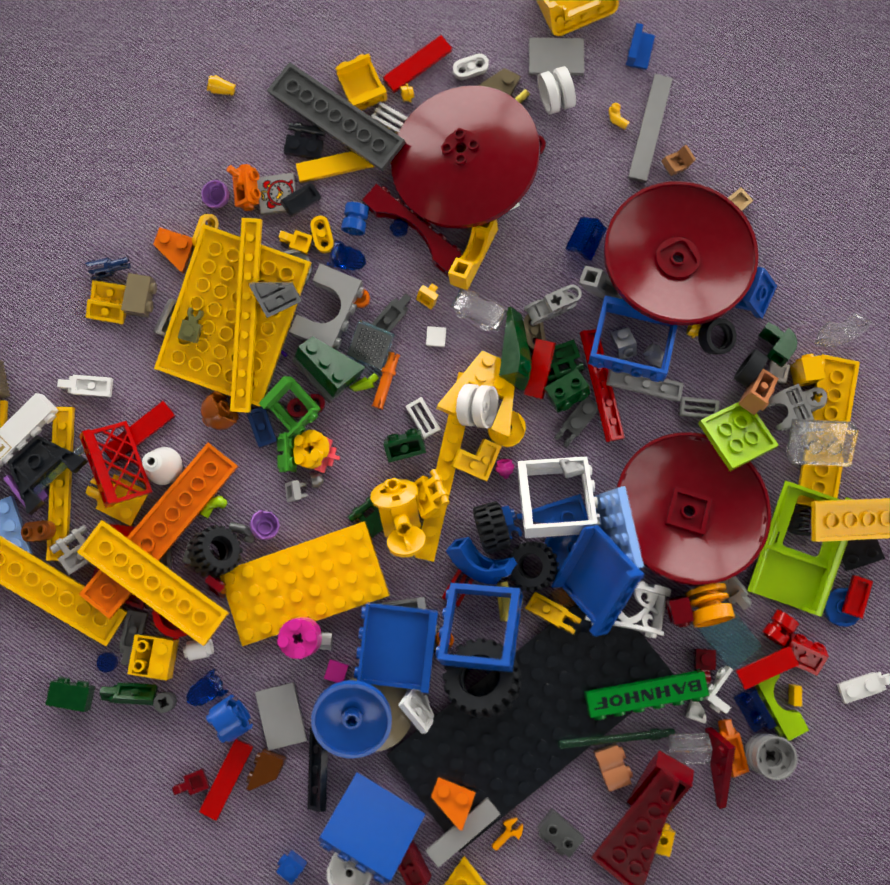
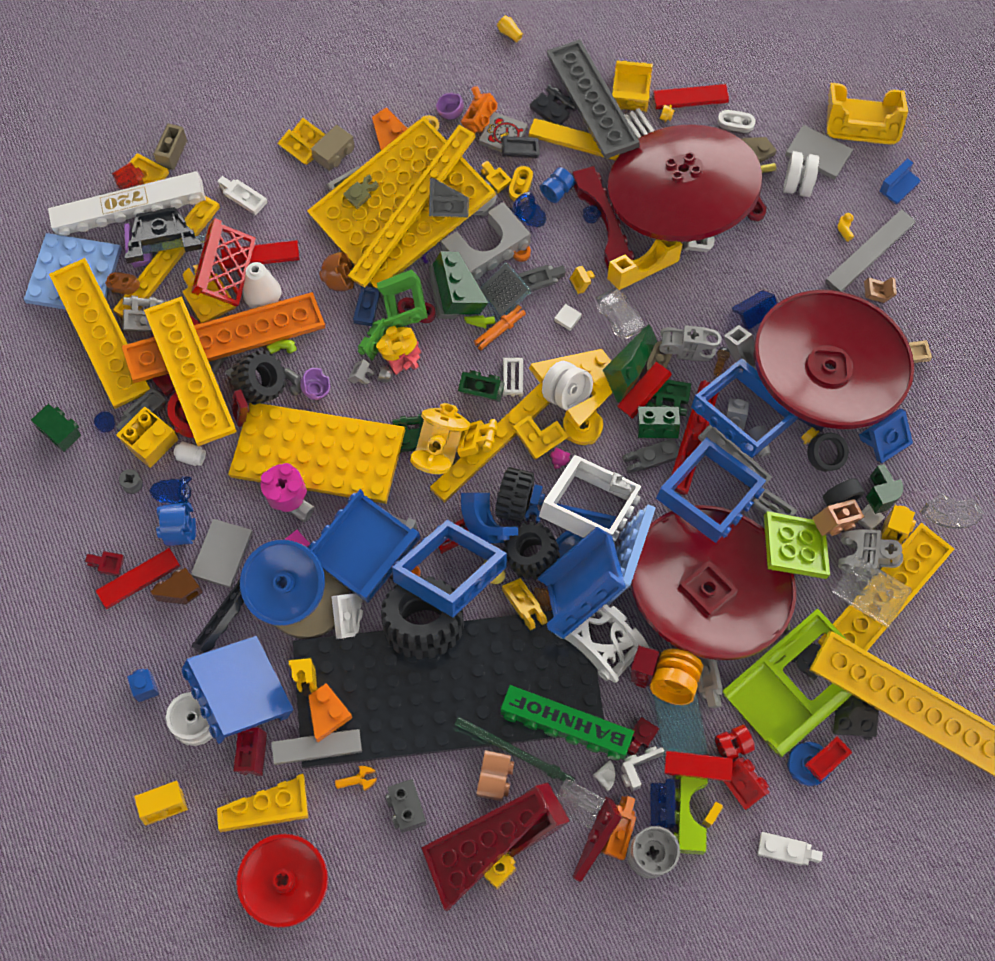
camera: 30 degrees right, 15 degrees down
(109, 266) = (324, 114): dark blue arm -> none
(130, 693) = (106, 456): dark green hinge -> none
(417, 784) = (304, 671): none -> yellow hinge
(584, 302) = (722, 356): none -> clear orange piece
(640, 461) = (692, 514): none -> blue window

